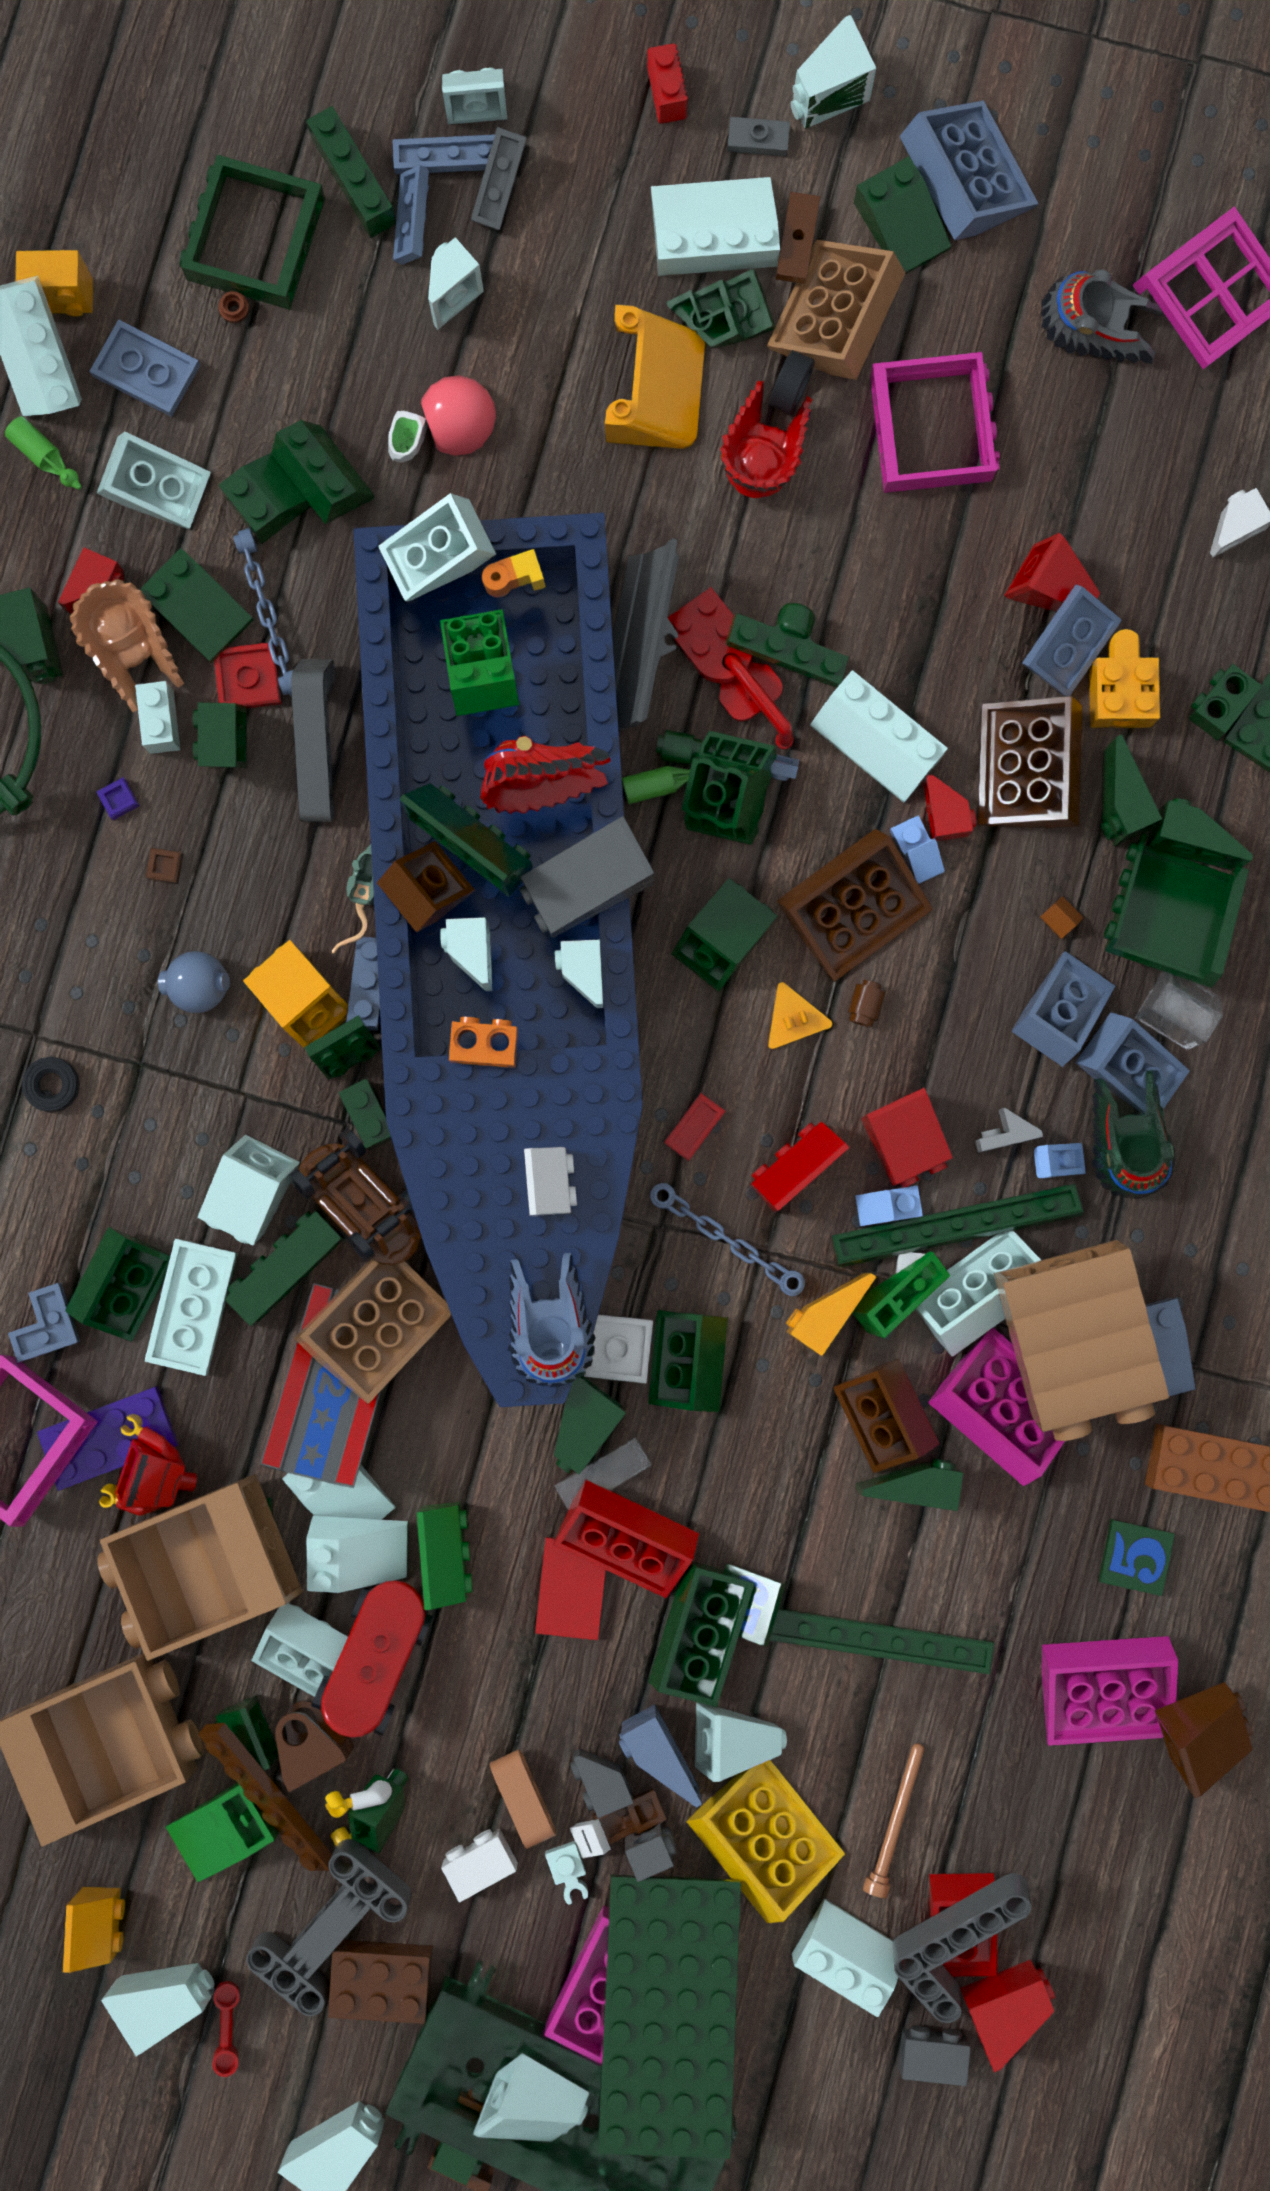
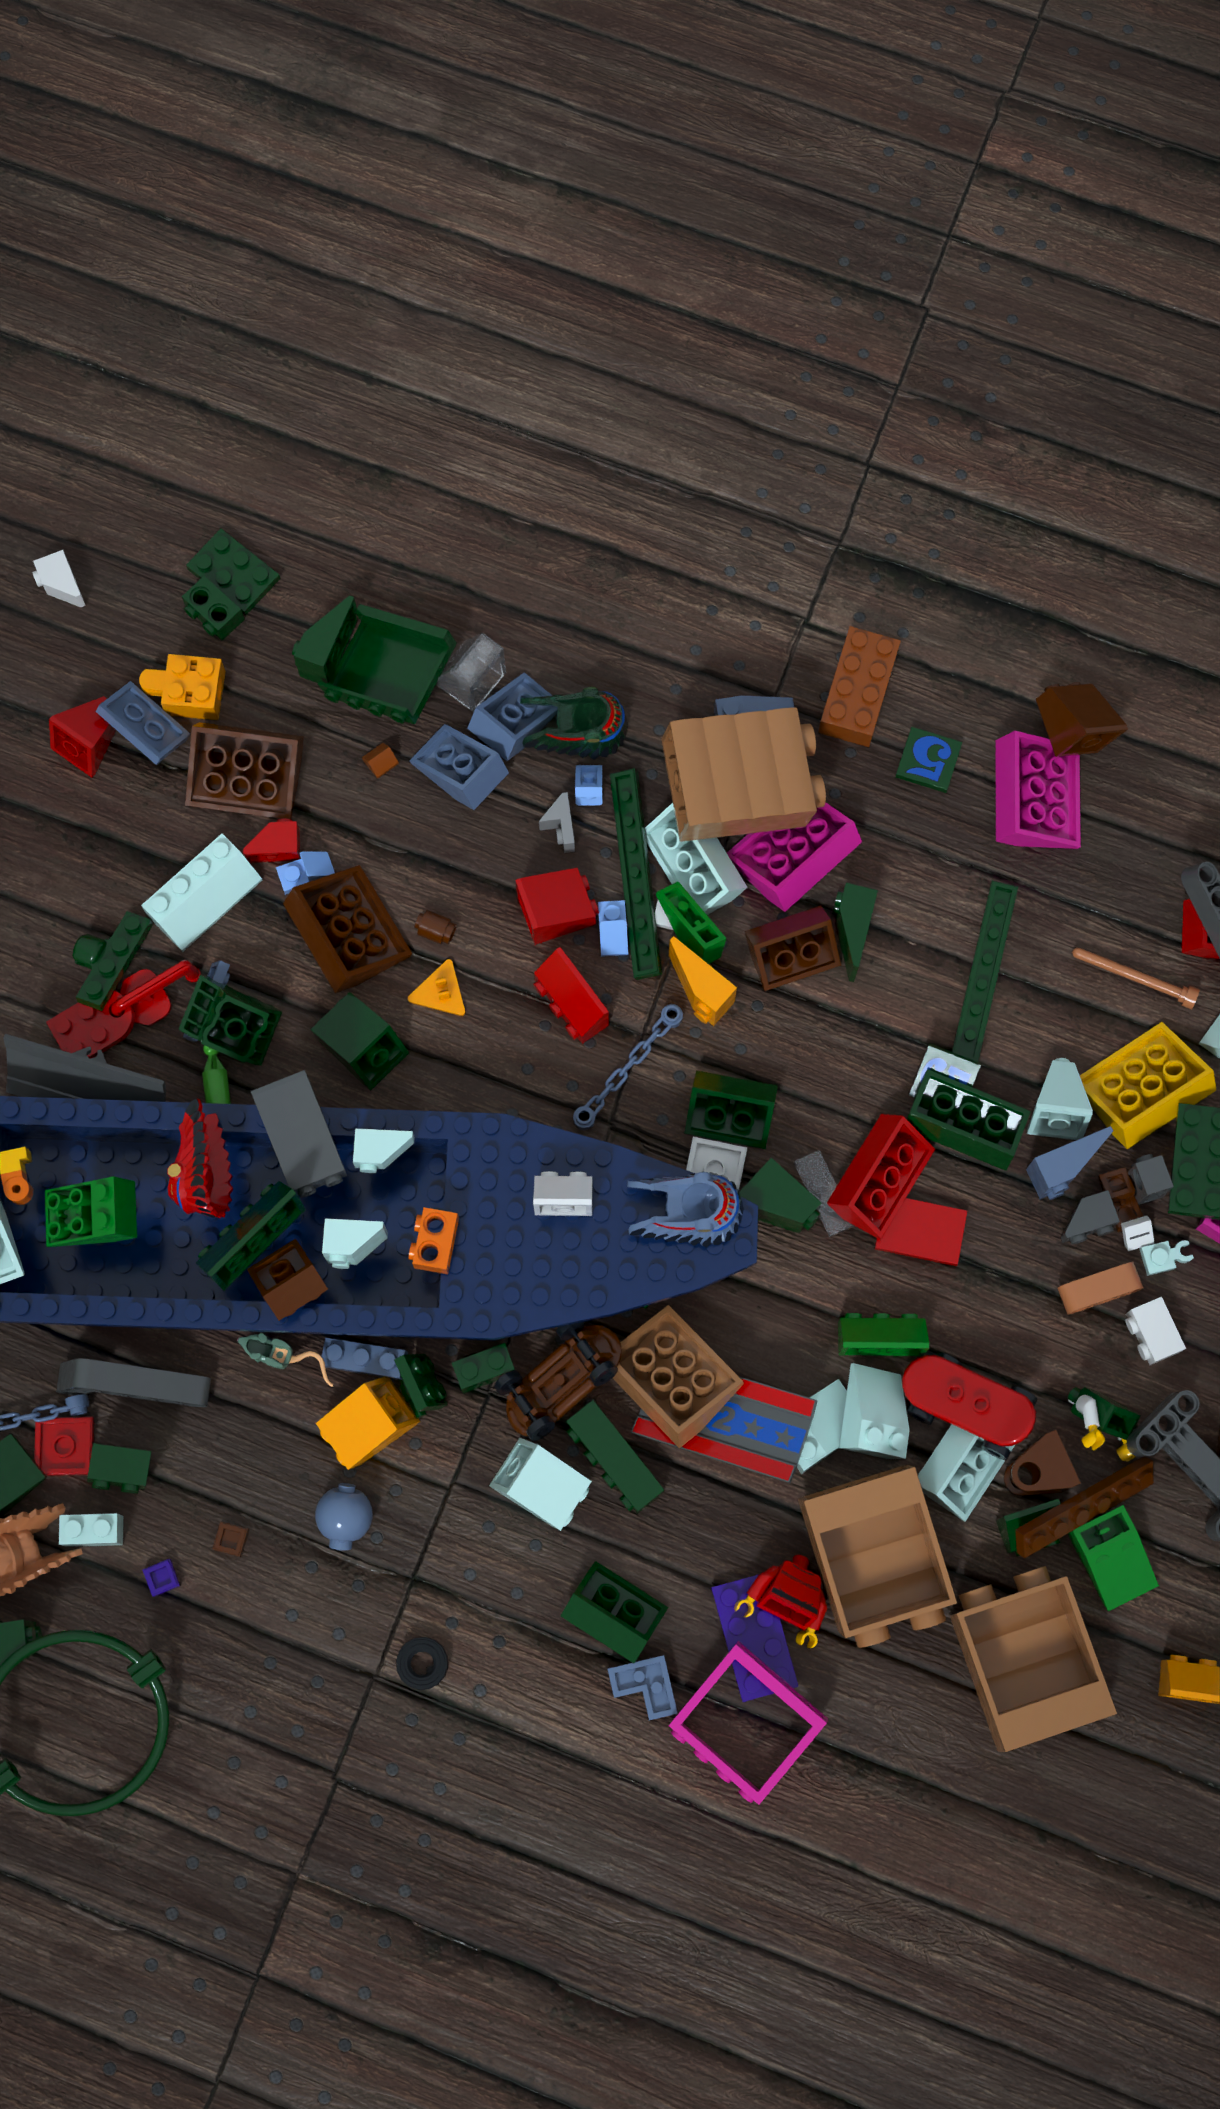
camera: 85 degrees left, 10 degrees down
(191, 1307) = (641, 1547): light aqua plate -> none
(678, 747) = (187, 1063): dark green brick -> none
(694, 1127) = (526, 1085): red tile -> none
(1126, 800) = (282, 695): dark green slope -> none

